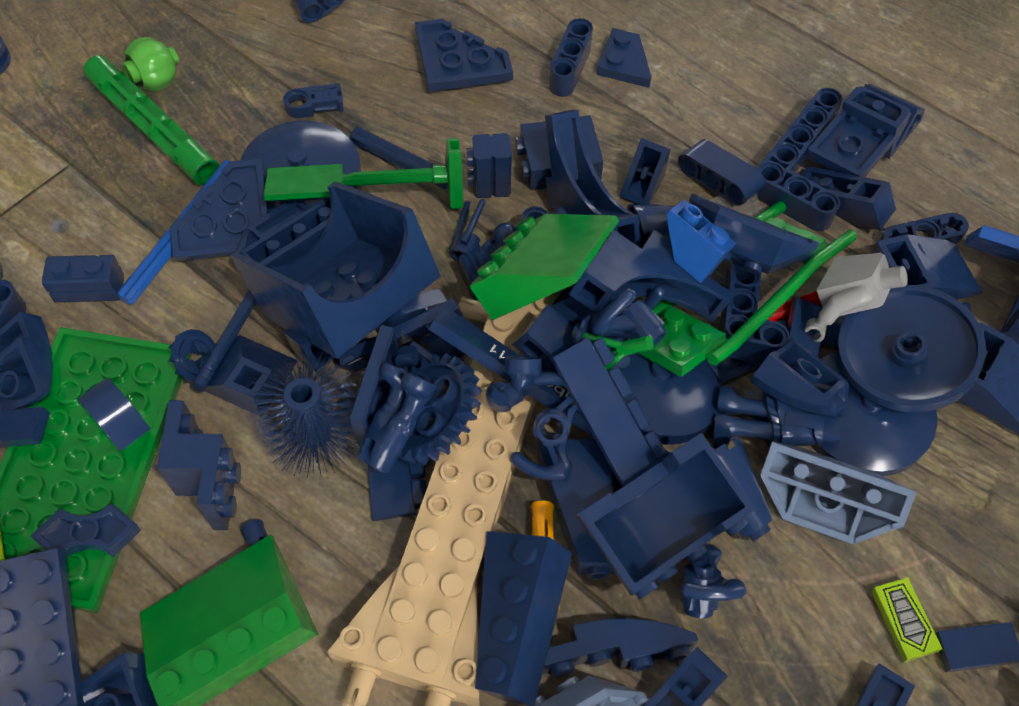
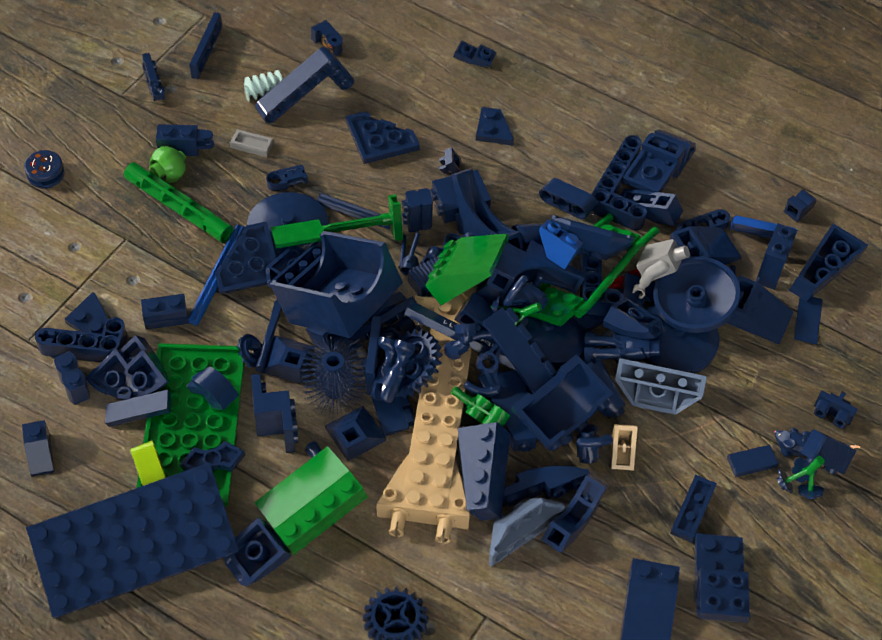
camera: 10 degrees left, 5 degrees down
(180, 29) = (184, 138): none -> dark blue hinge
(277, 47) = (252, 143): none -> light grey tile
(327, 512) = (355, 433): none -> dark blue slope
(534, 503) = (481, 409): none -> green beam
(554, 99) = (450, 162): none -> dark blue tile
(570, 57) = (457, 128): dark blue beam -> none
(645, 172) = (519, 203): dark blue slope -> none
(765, 588) = (623, 447): none -> tan slope
(906, 620) = (709, 451): tile -> none

